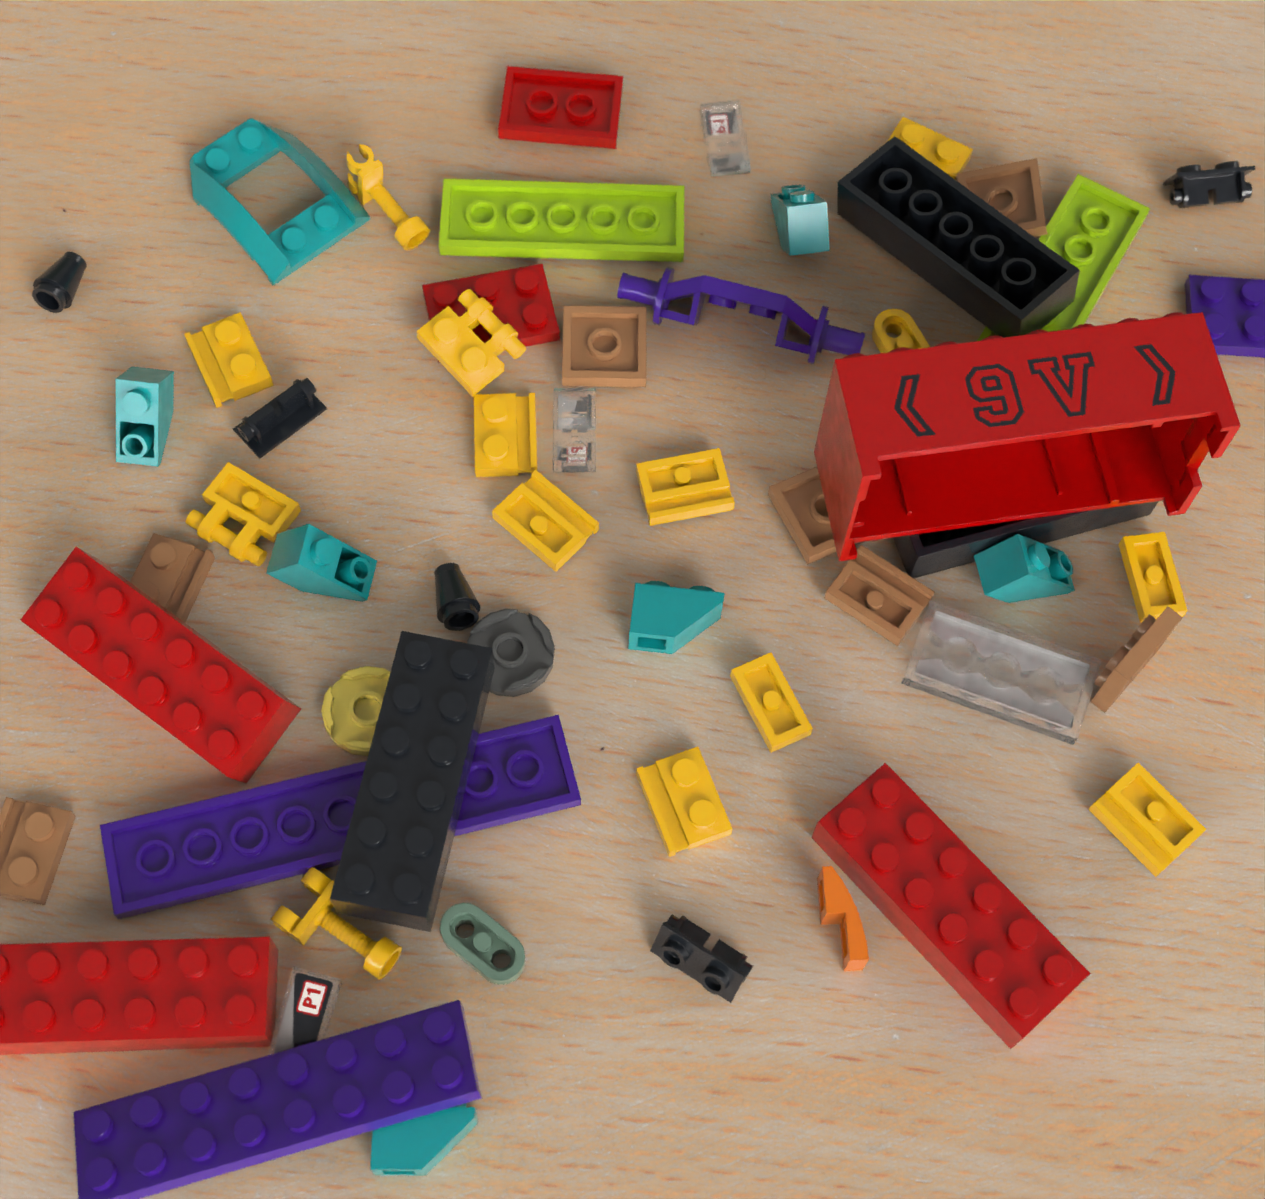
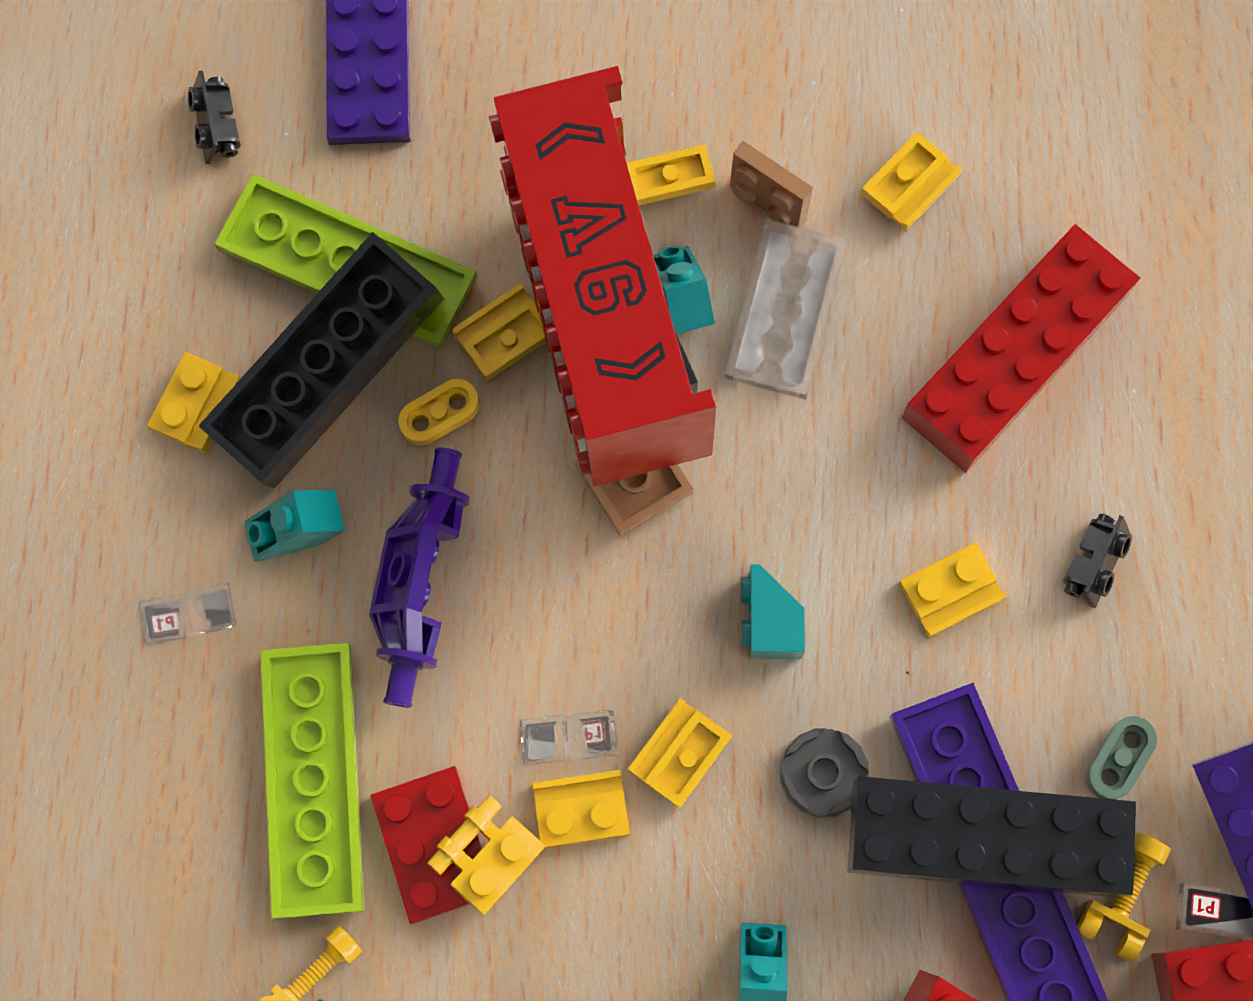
camera: 90 degrees left, 10 degrees up
(353, 708) = (905, 911): light yellow tile -> none
(454, 598) = (777, 834): black cone -> none
(561, 107) = (158, 799): red plate -> none
(604, 346) = (468, 716): medium nougat plate -> none
(684, 486) = (625, 617): yellow plate -> none
(771, 702) = (846, 516): yellow plate -> none
(839, 908) = (1038, 442): orange slope -> none
(879, 595) = (735, 419): medium nougat plate -> none
(1011, 190) = (252, 314): medium nougat plate -> none

